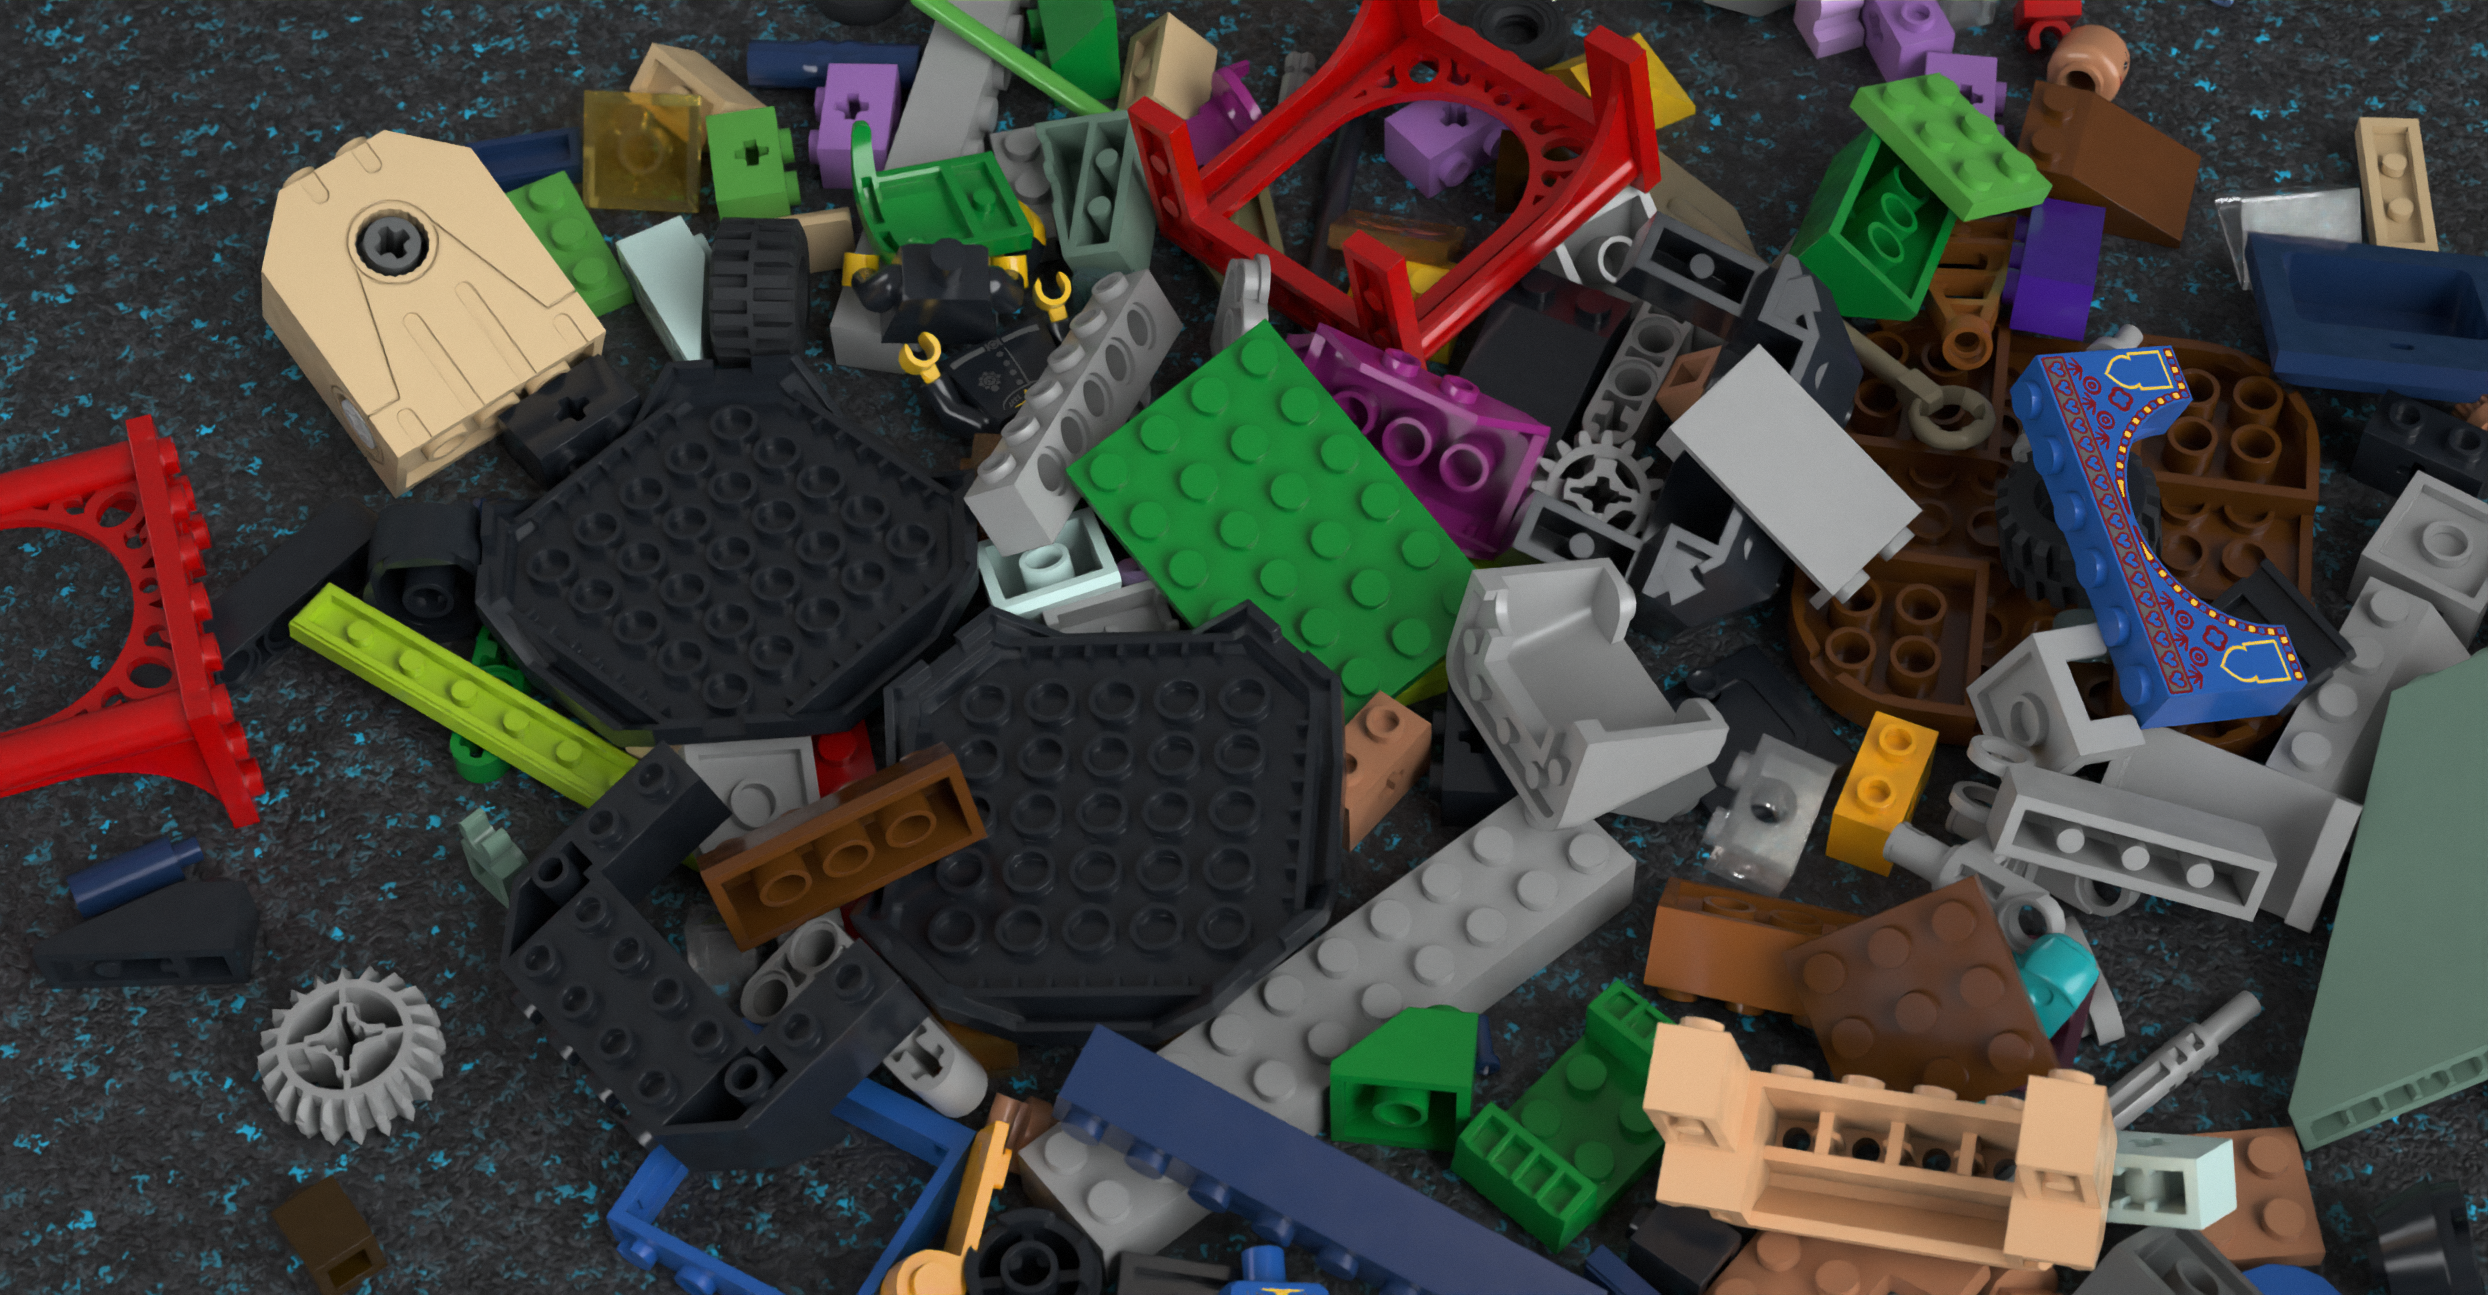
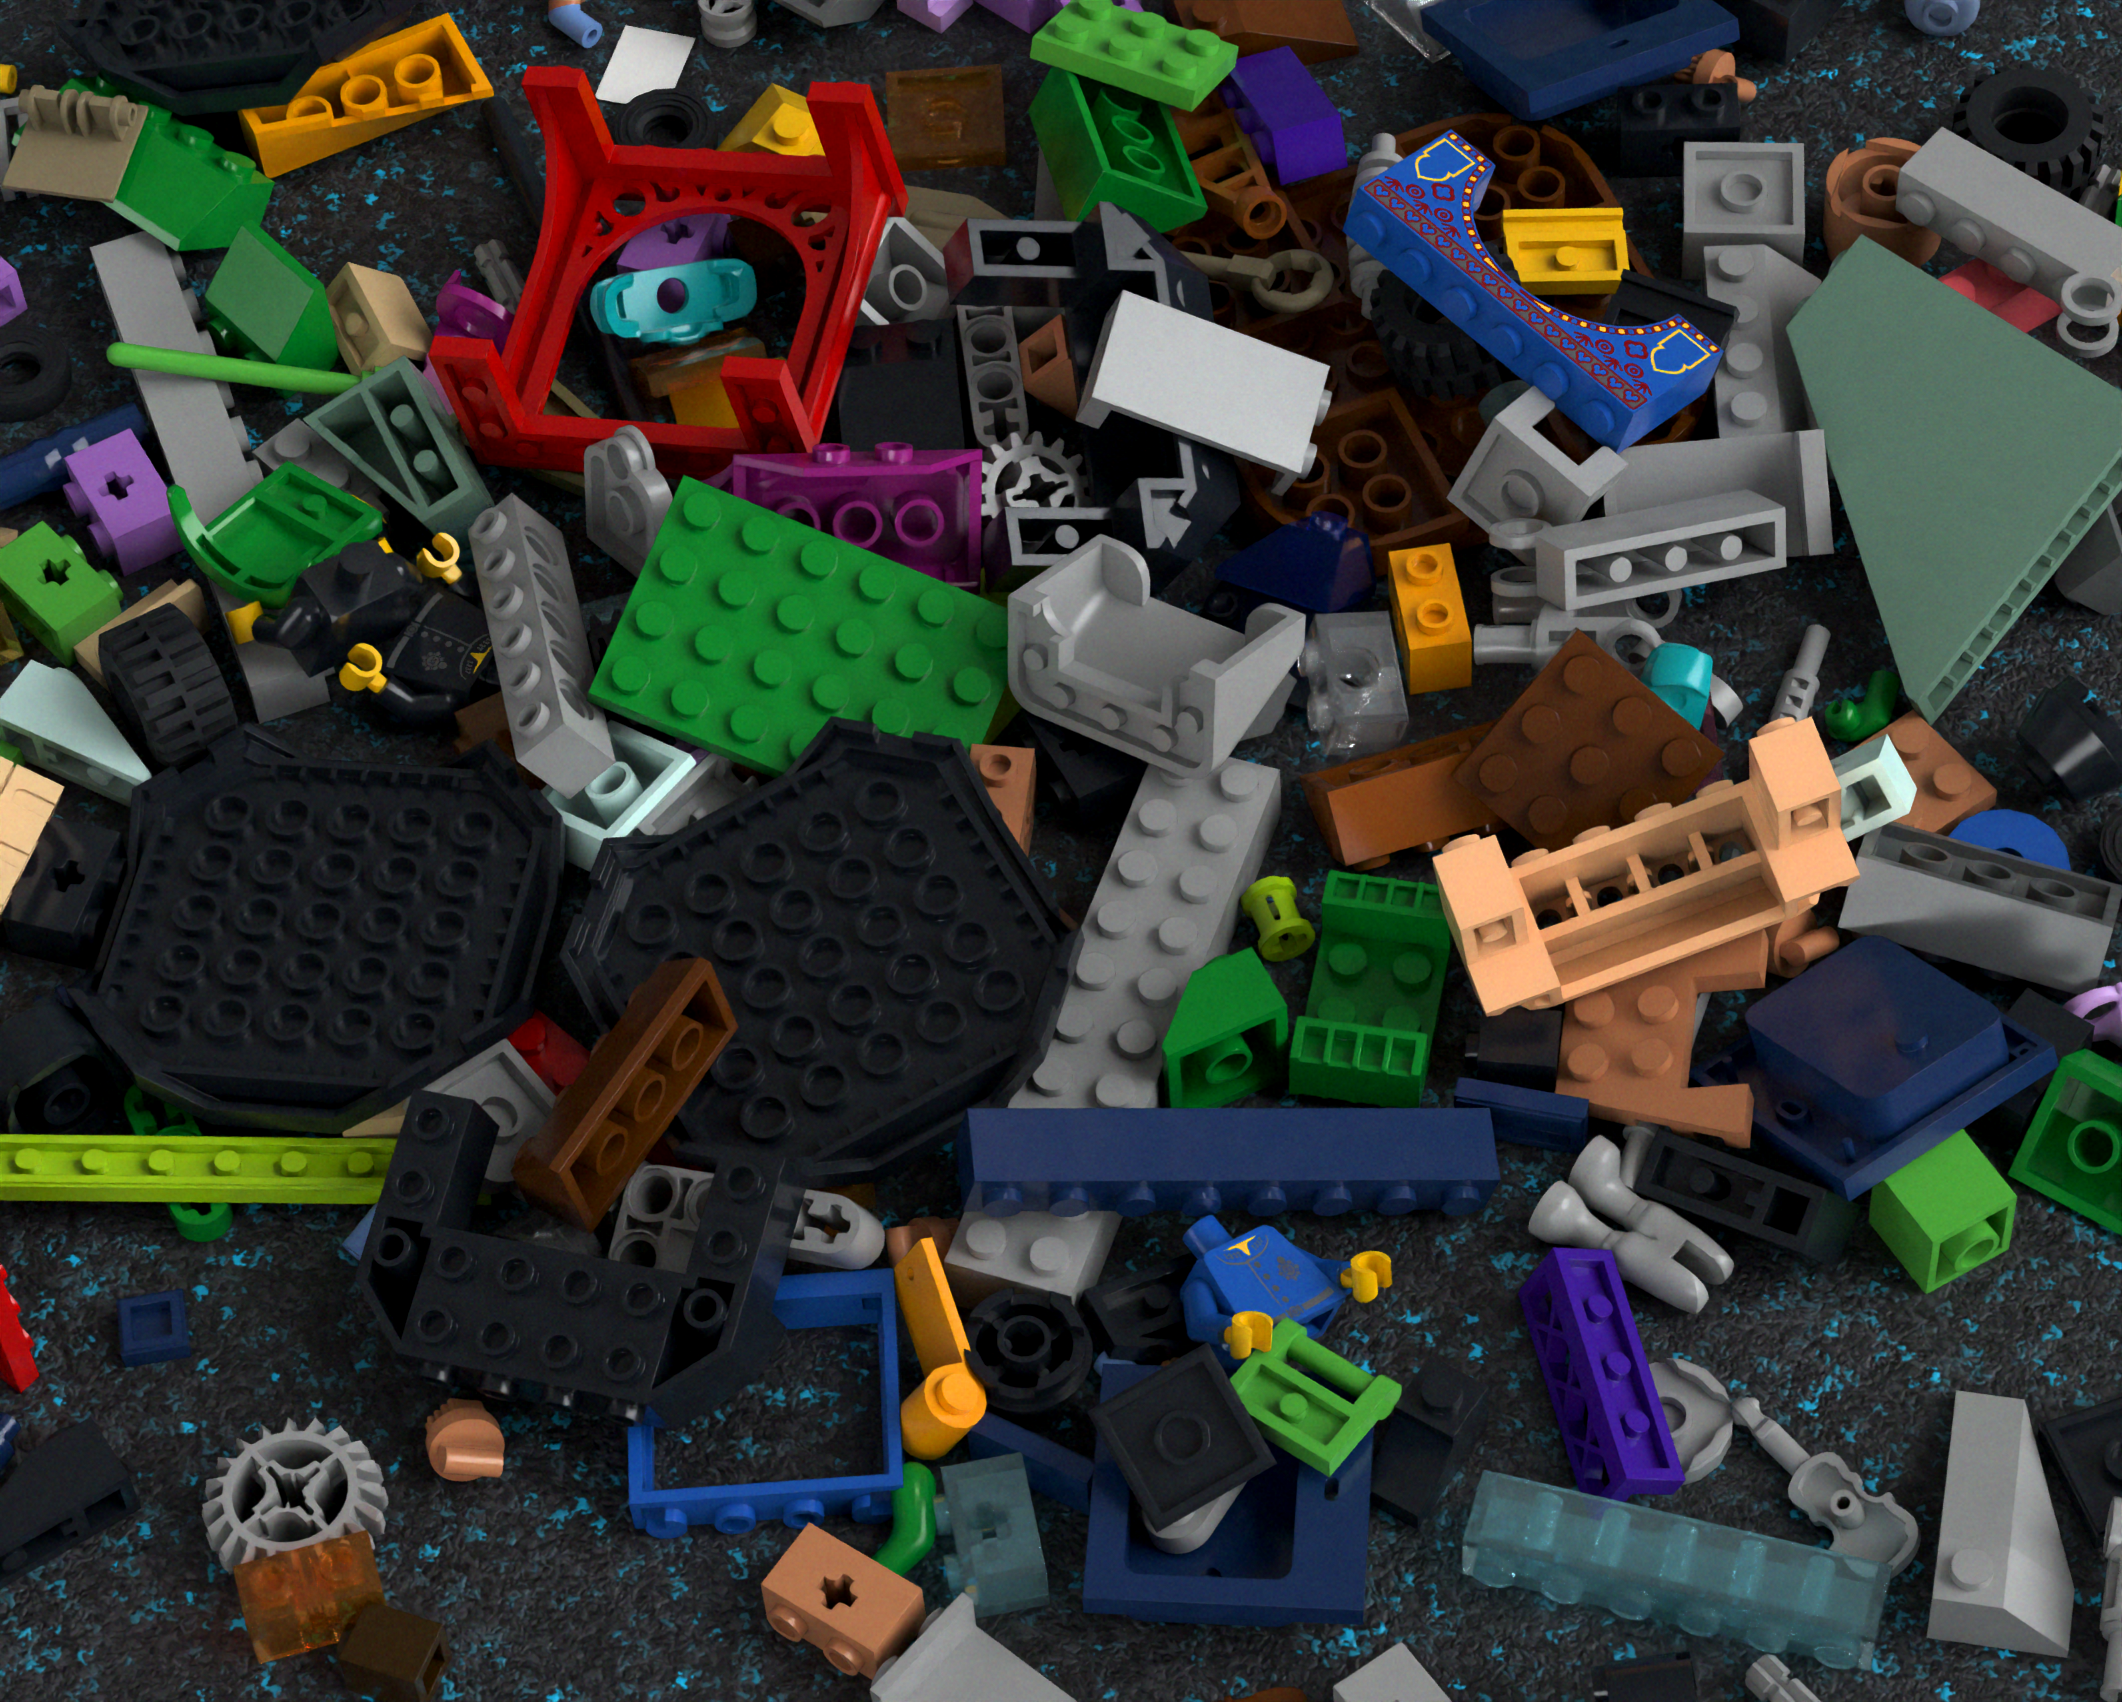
camera: 30 degrees left, 0 degrees up
(301, 1139) = (307, 1594): none -> clear orange brick
(370, 832) = (153, 1328): none -> dark blue tile
(491, 855) = (300, 1286): sand green plate -> none
(526, 1078) = (464, 1441): none -> nougat piece
(1453, 181) = (713, 295): none -> teal piece
(1551, 998) = (1299, 930): none -> lime bush
(1766, 132) = (946, 117): none -> clear orange tile
(1791, 686) = (1307, 563): none -> clear blue slope
(2234, 514) = (1566, 249): none -> yellow plate
(2243, 1110) = (1868, 717): none -> green arm

